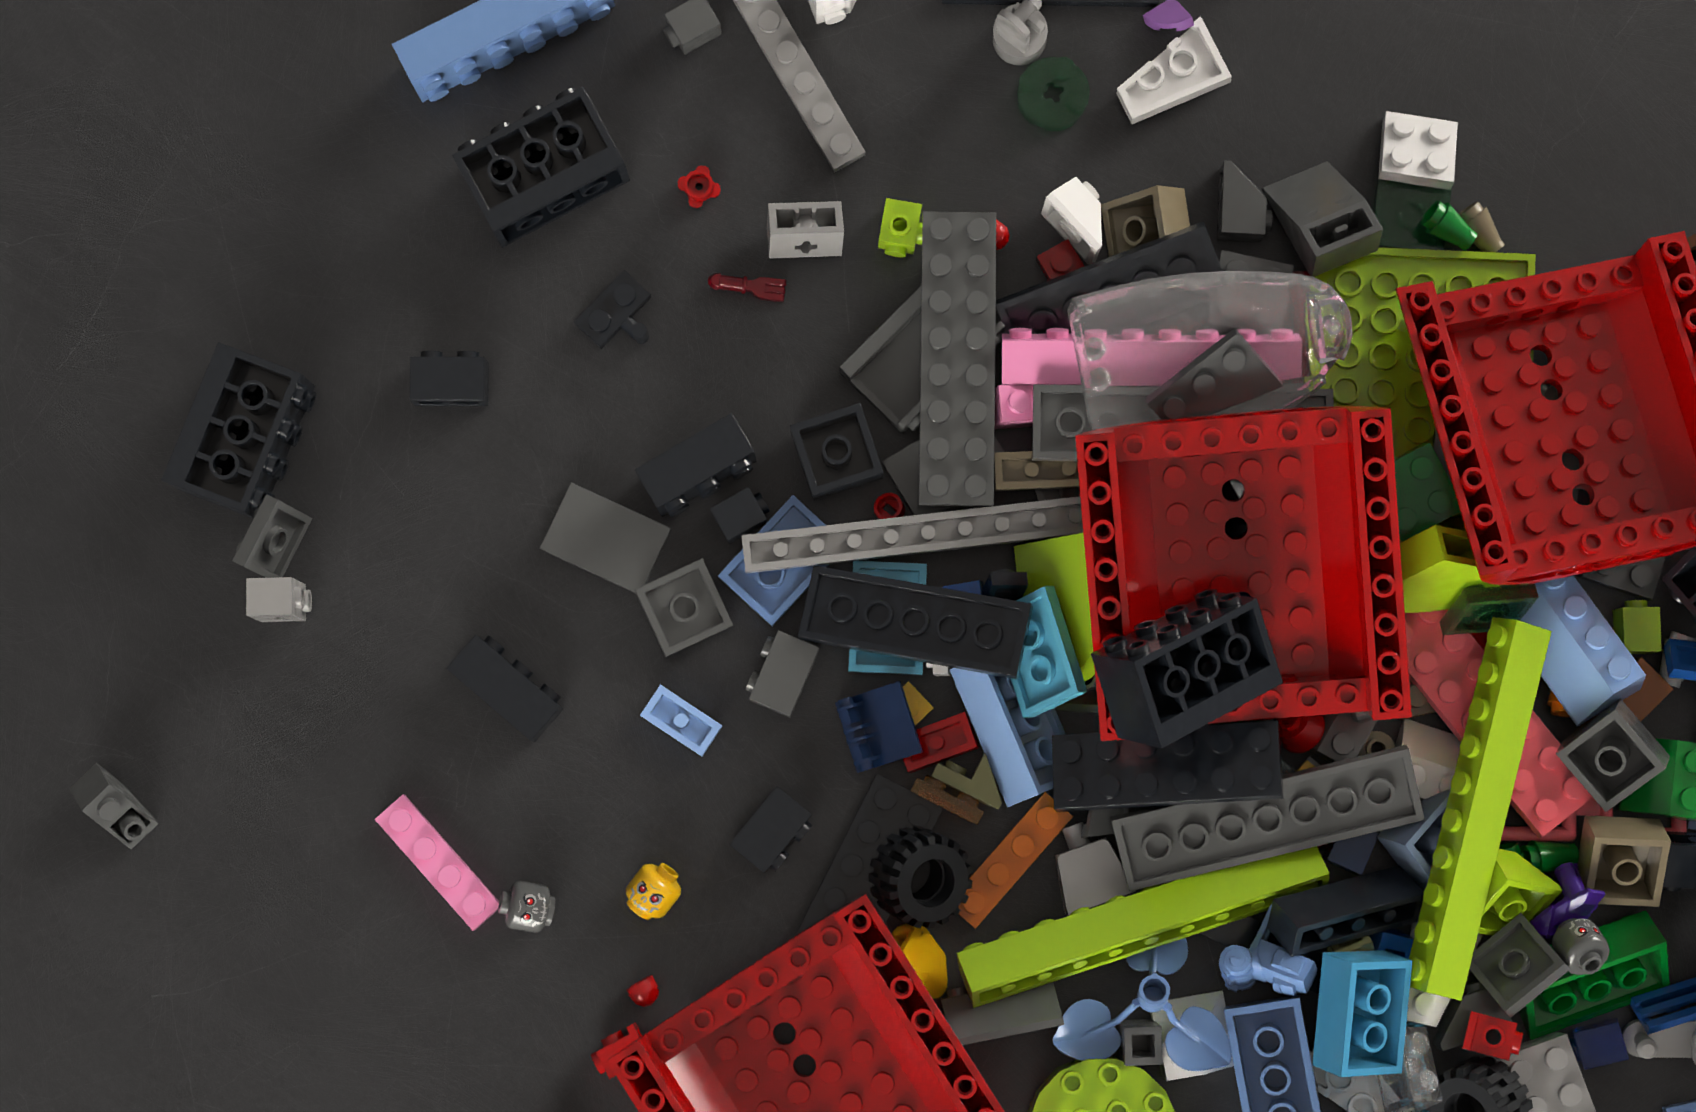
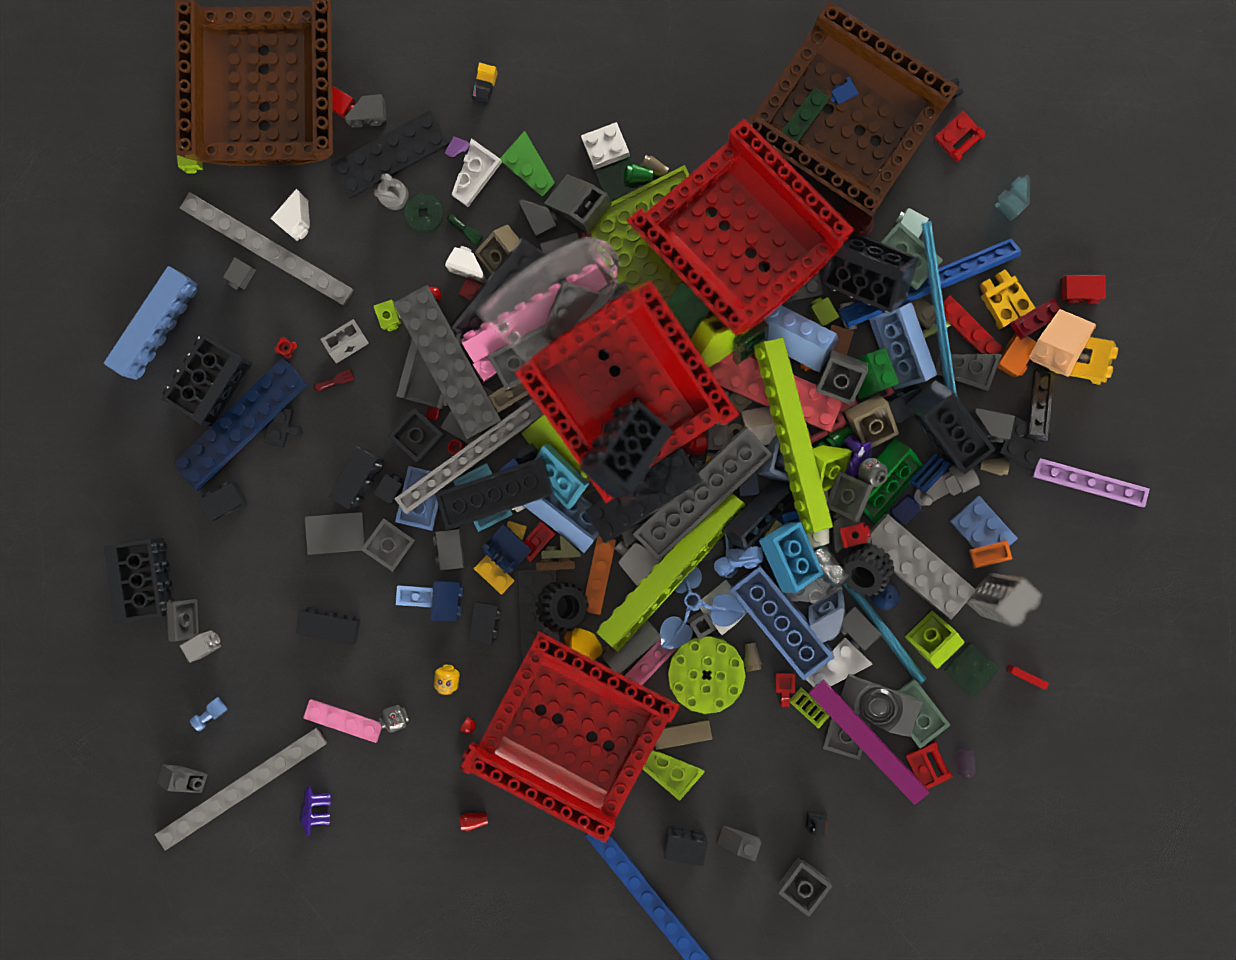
camera: 25 degrees left, 5 degrees up
(200, 879) = (241, 788): none -> light grey plate
(234, 721) = (213, 711): none -> medium blue leg
(284, 991) = (306, 817): none -> dark purple connector
(552, 269) = (240, 424): none -> dark blue plate
(731, 756) = (446, 600): none -> dark blue slope
(833, 758) = (494, 574): none -> yellow plate
(882, 431) = (433, 413): none -> red piece
(1019, 1057) = (649, 663): none -> bright pink plate
(1111, 169) = (470, 233): none -> dark green piece
(1269, 111) = (528, 166): none -> bright green wing

